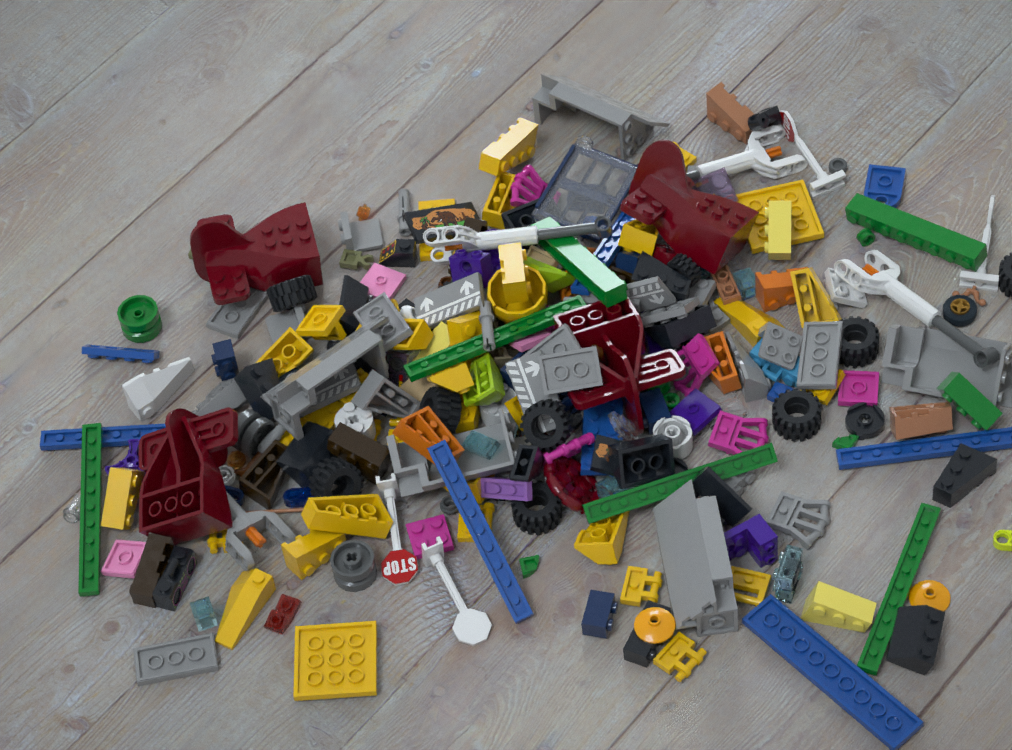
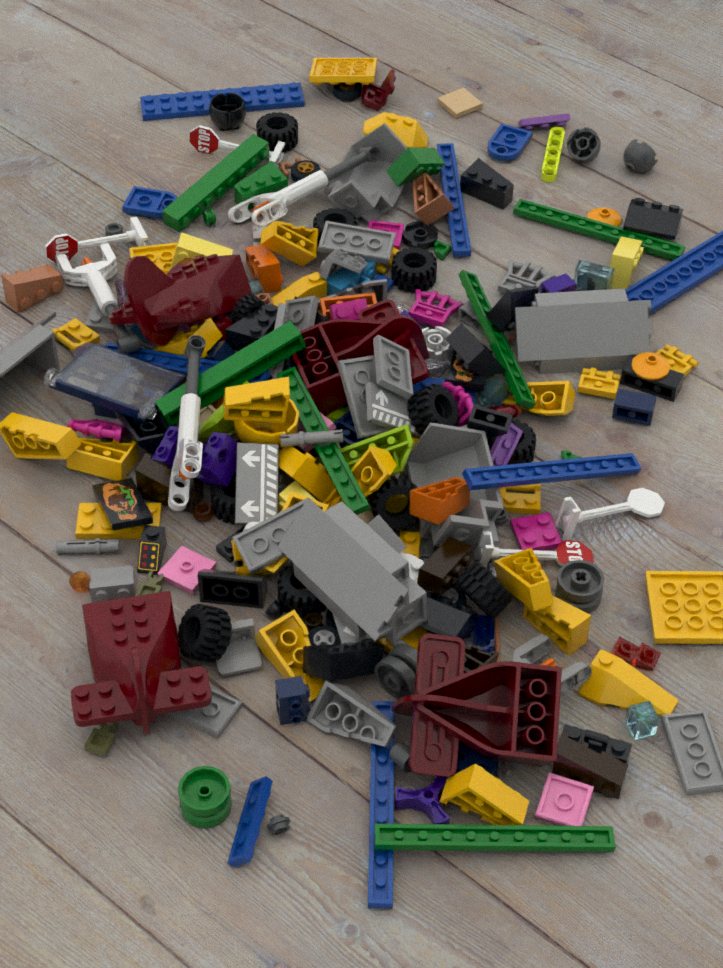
camera: 95 degrees left, 5 degrees down
(72, 510) = (492, 861): clear cone -> none
(116, 370) = (278, 824): none -> dark grey plate
(150, 392) = (322, 780): white wedge -> none
(323, 323) = (263, 594): yellow bracket -> none
(480, 445) = (441, 470): clear light blue plate -> none
(765, 118) = (53, 257): black leg -> none
(922, 273) = (264, 180): none -> green wedge

